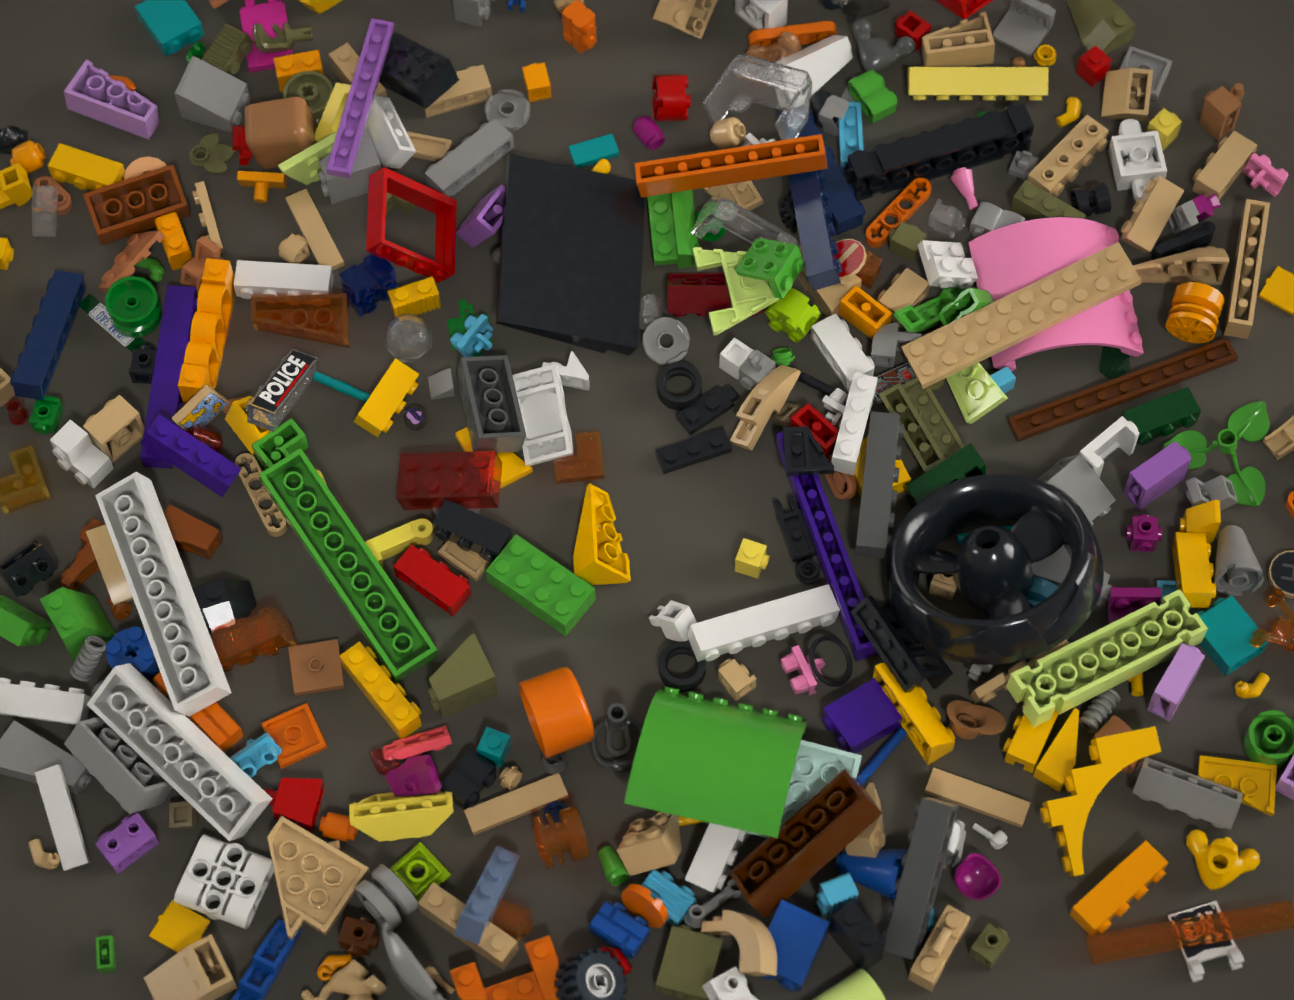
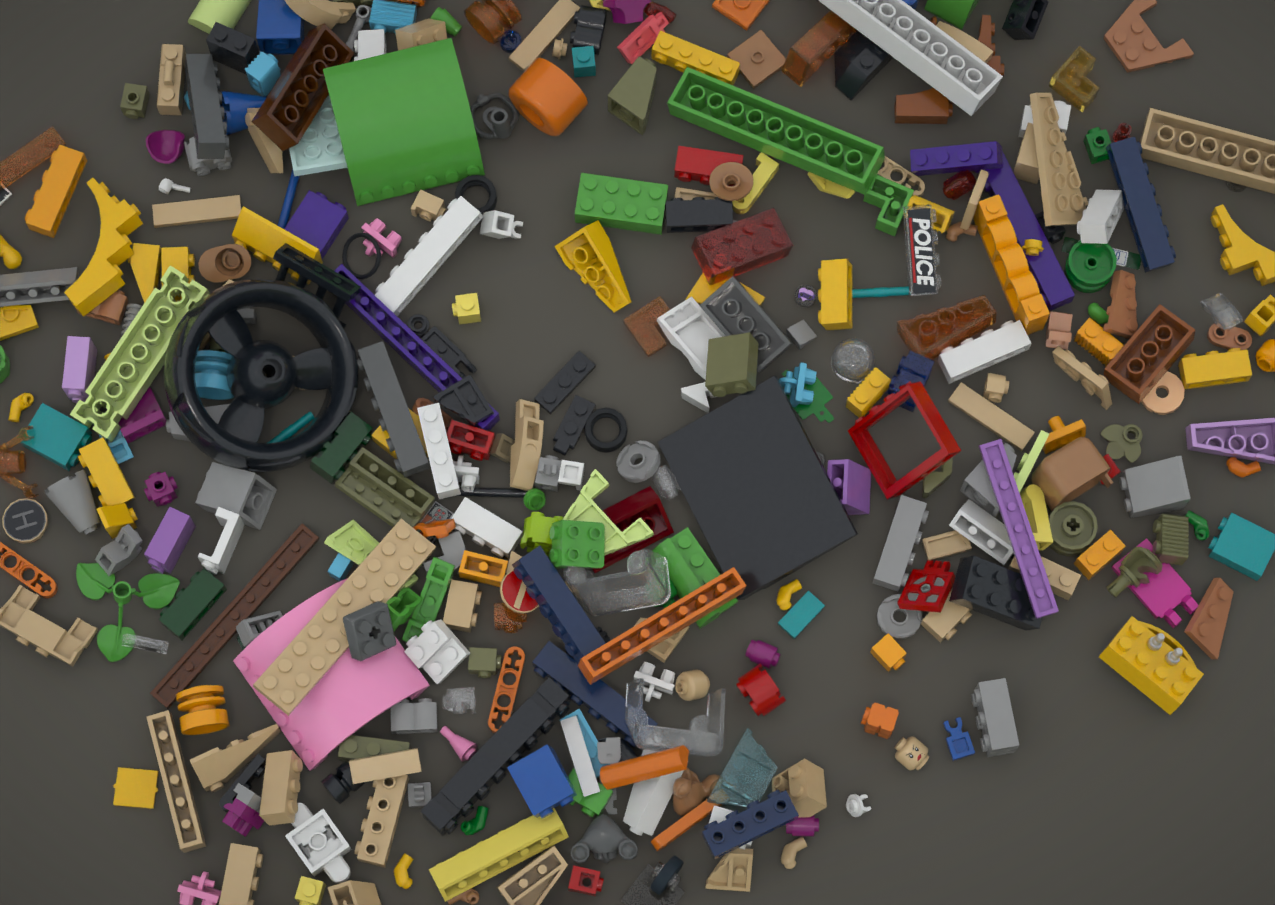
camera: 150 degrees right, 10 degrees up
(94, 335) = (1101, 216): none -> white brick
(103, 389) = (1057, 169): none -> tan wing
(176, 339) = (1032, 247): none -> yellow plate
(414, 531) = (728, 174): none -> medium nougat dish
(468, 108) = (927, 587): none -> red piece
(530, 357) = (731, 364): none -> olive brick
(722, 43) = (745, 774): none -> clear light blue wing
(820, 73) = (644, 767): none -> orange brick
(863, 117) = (580, 756): none -> white sticker
(891, 364) = (436, 528): none -> orange plate
(907, 106) = (542, 781): none -> blue slope
(1005, 284) = (369, 631): none -> dark grey brick
(1046, 182) = (385, 765): none -> tan tile
(1118, 364) = (247, 629): none -> light grey slope
(1223, 400) = (145, 643): none -> clear tile

